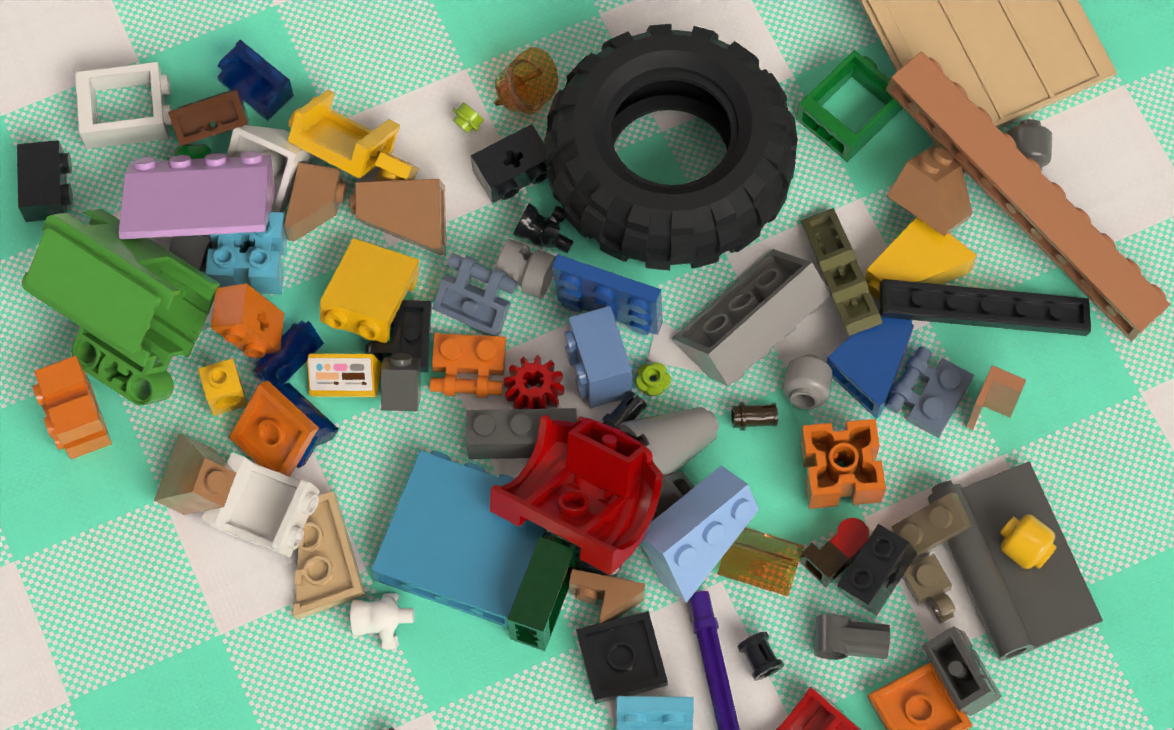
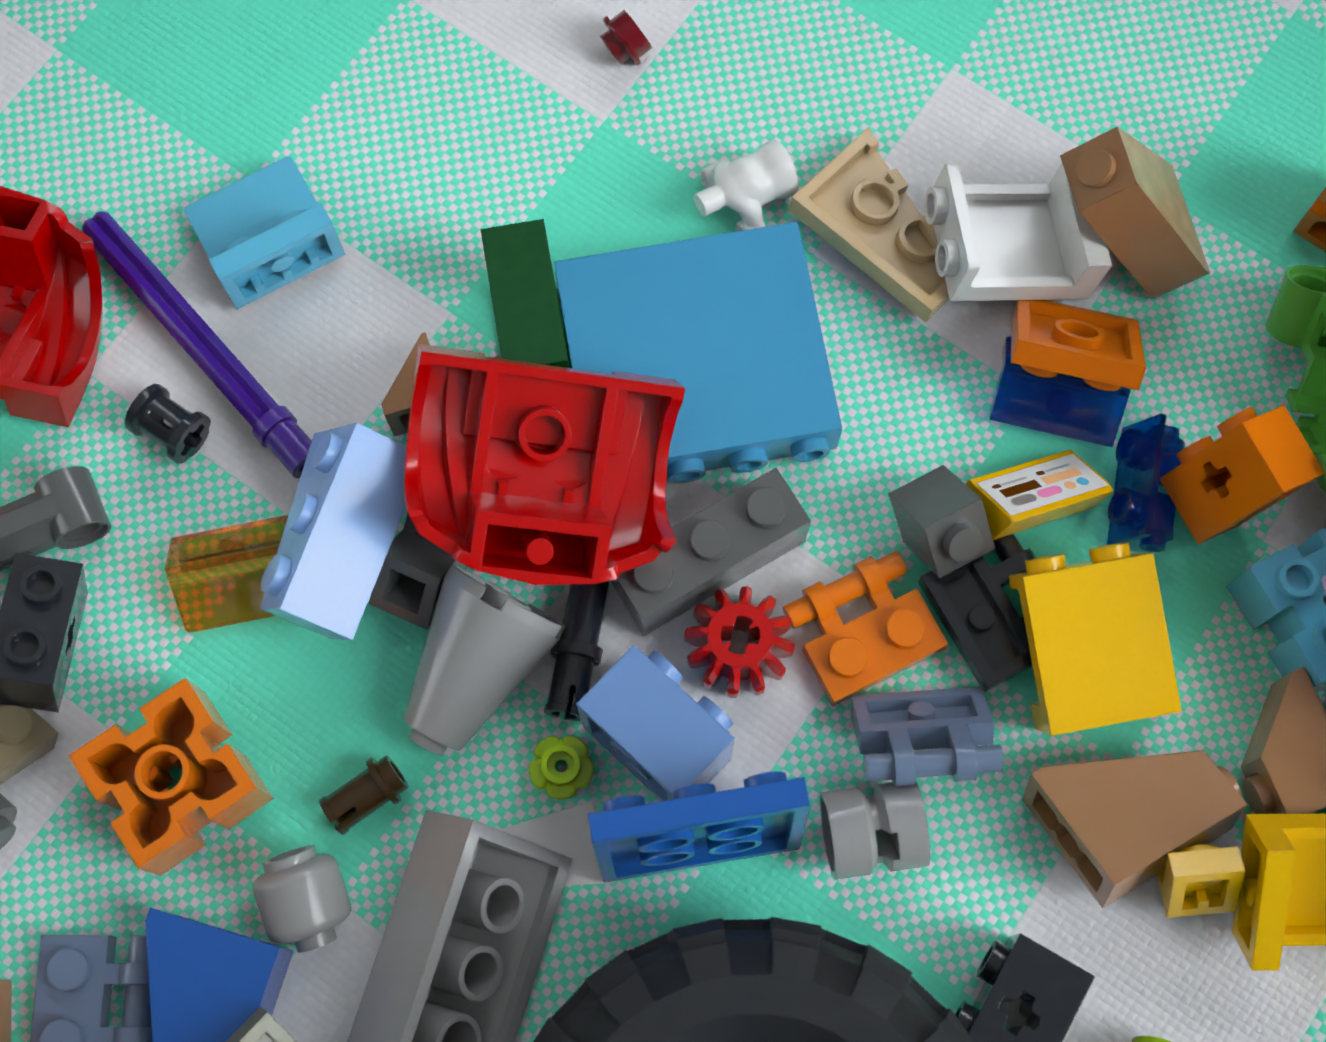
camera: 150 degrees right, 5 degrees up
(222, 387) = (1200, 373): yellow brick -> none
(542, 230) = (894, 920): black piece -> none
(621, 657) = (371, 315): black plate -> none
(836, 553) = (121, 641): leg -> none

